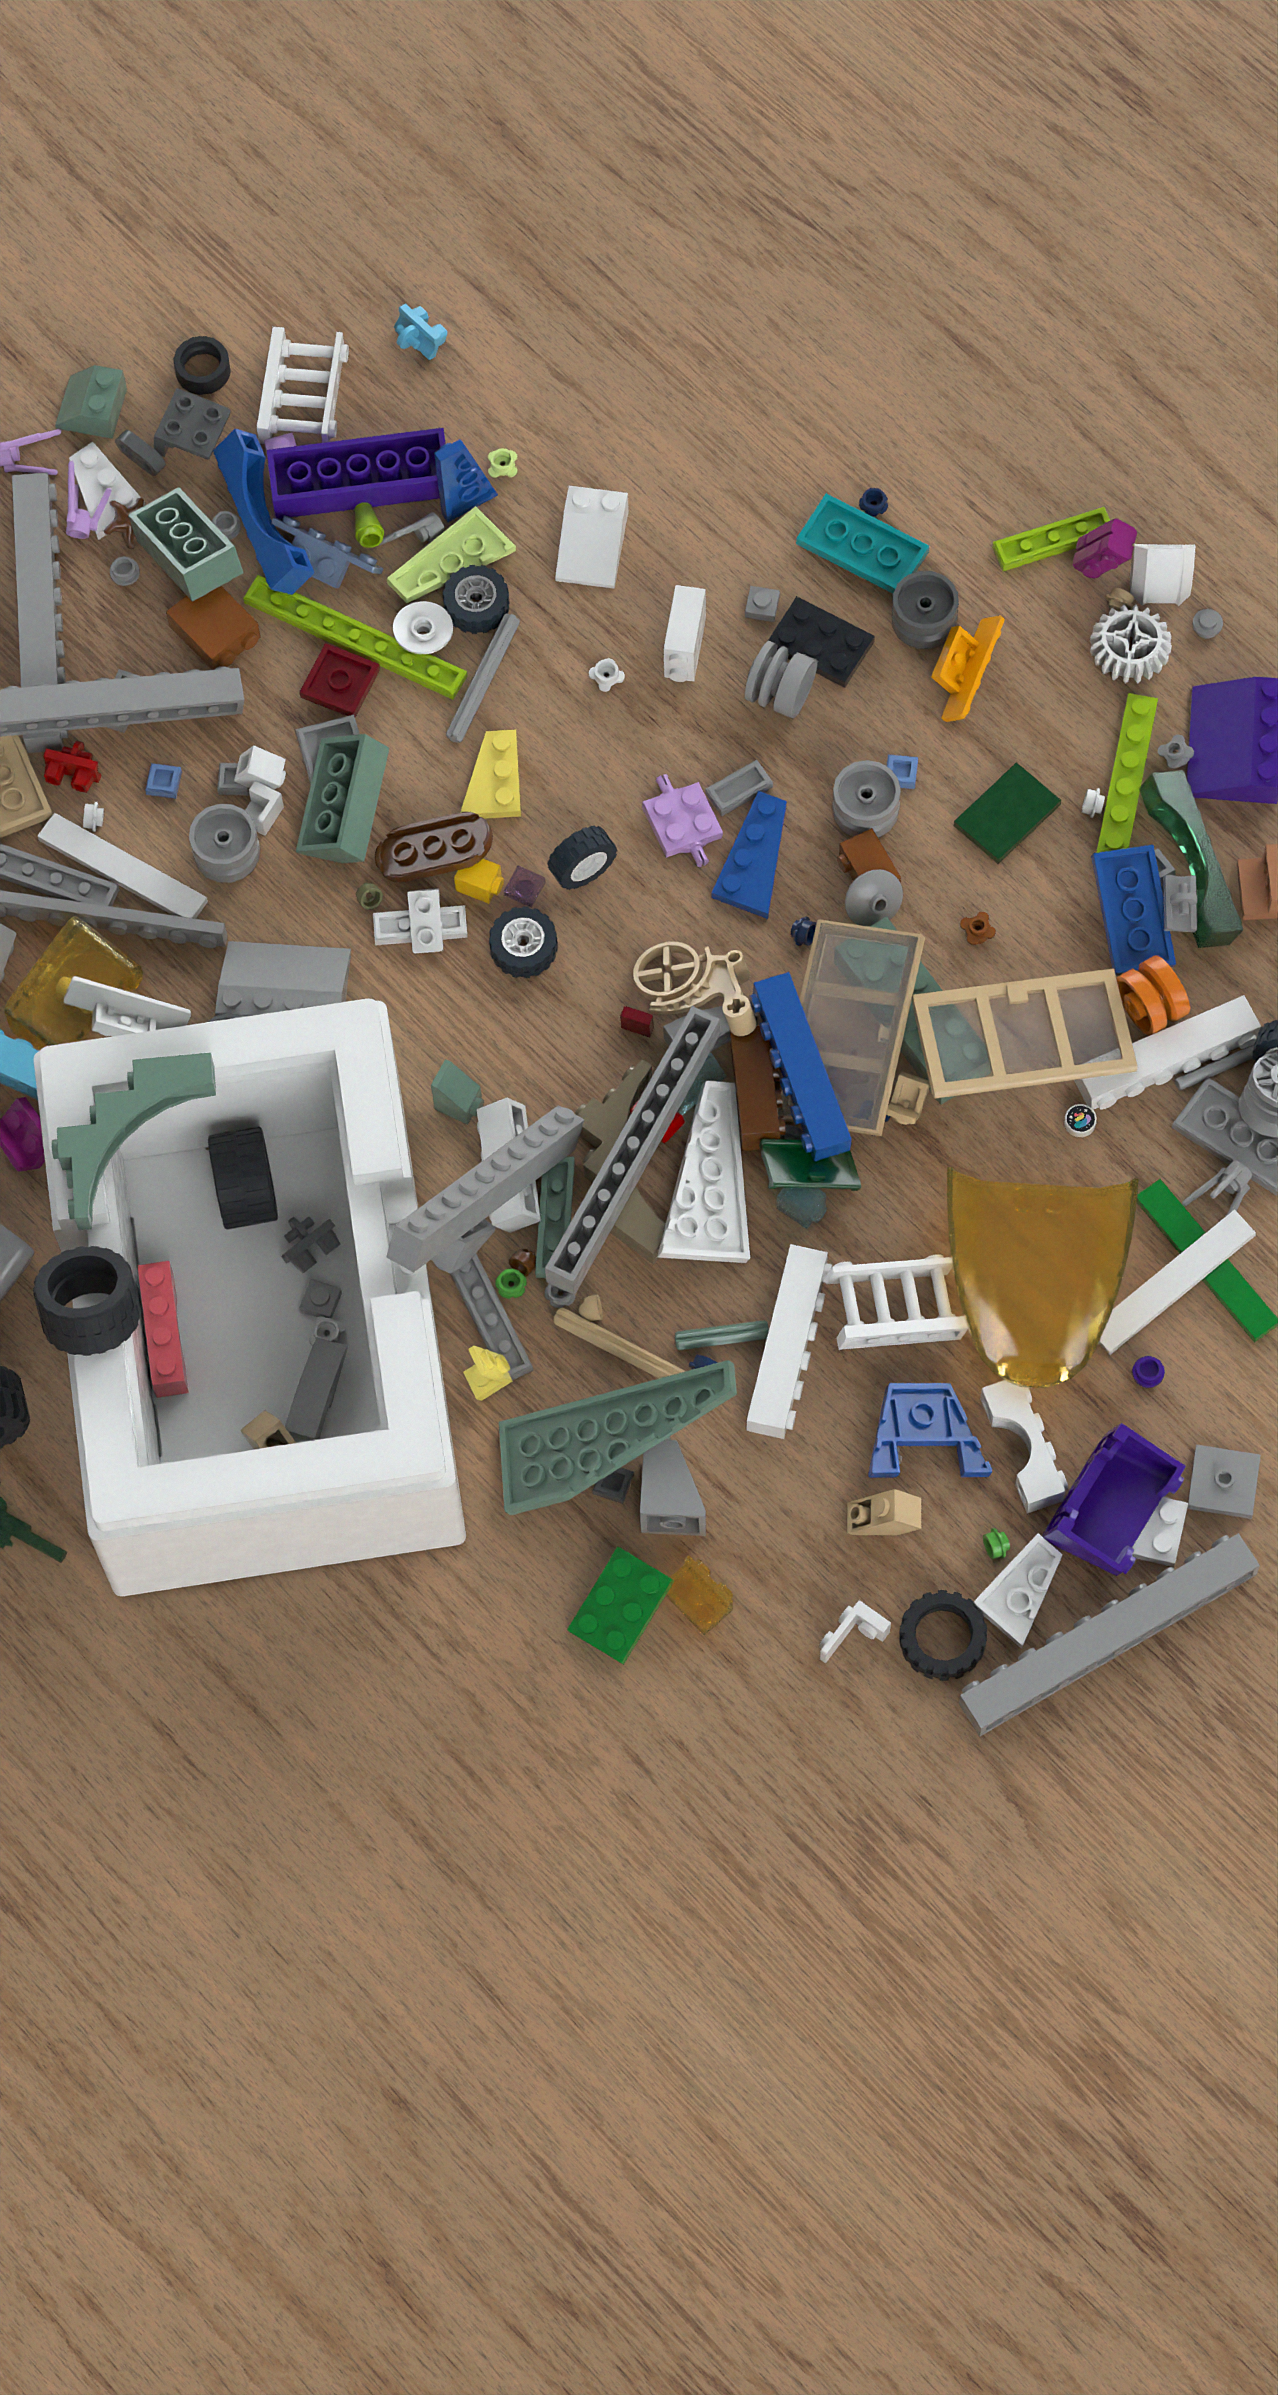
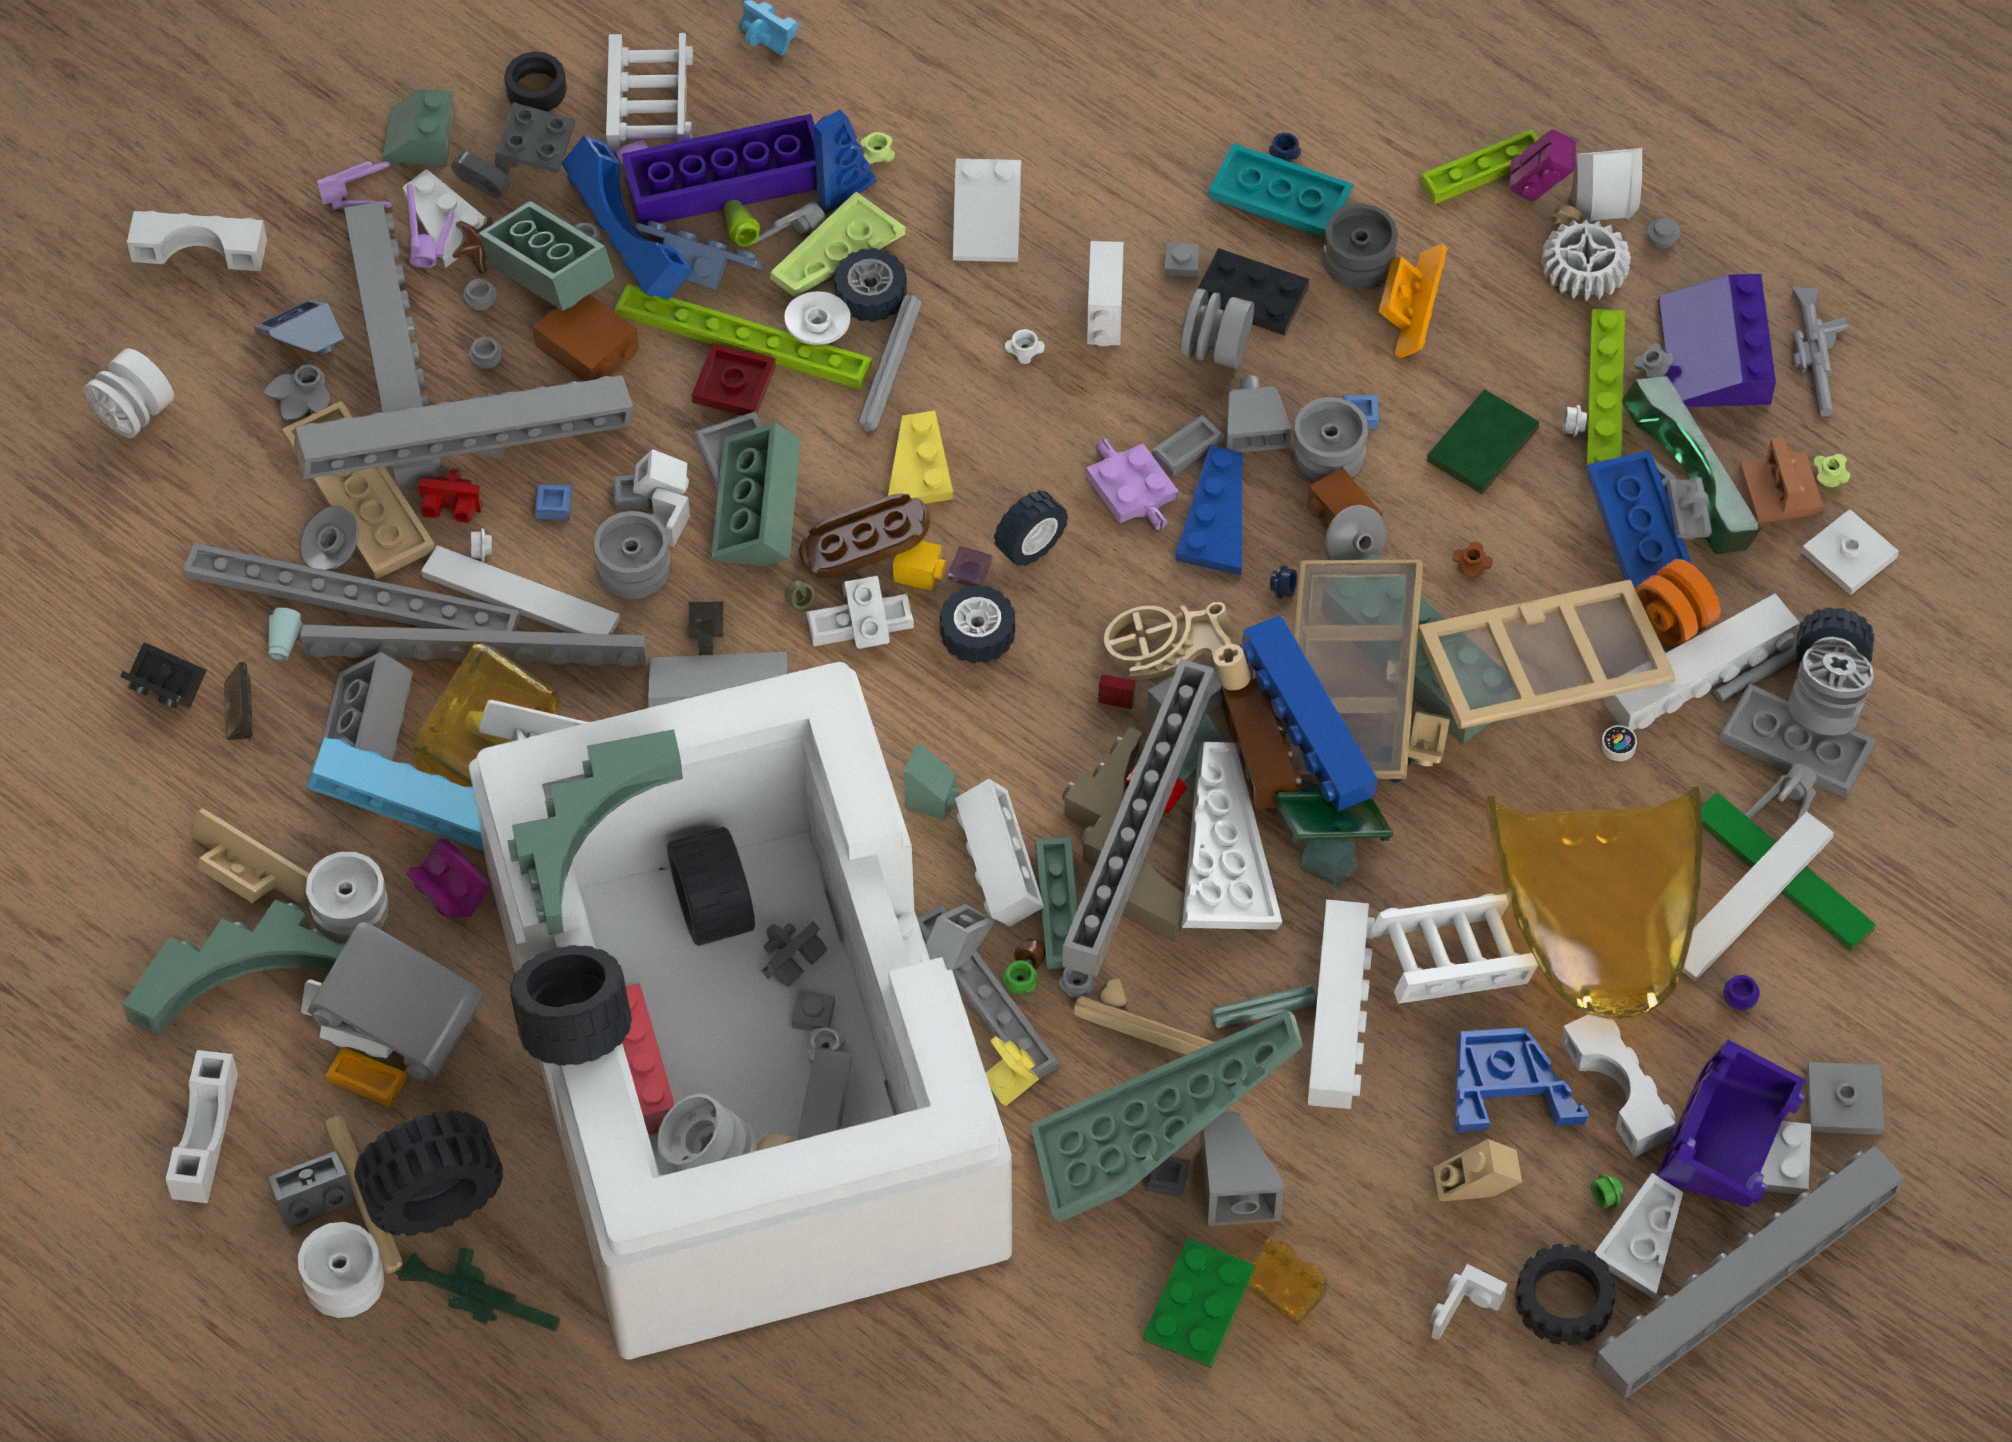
camera: 10 degrees left, 10 degrees down
(122, 629) = (485, 353): none -> light grey plate
(207, 1415) = (703, 1132): none -> white wheel
(282, 913) = (706, 622): none -> clear smoke plate
(484, 1188) = (987, 861): light grey brick -> none
(803, 769) = (1256, 418): none -> light grey torso

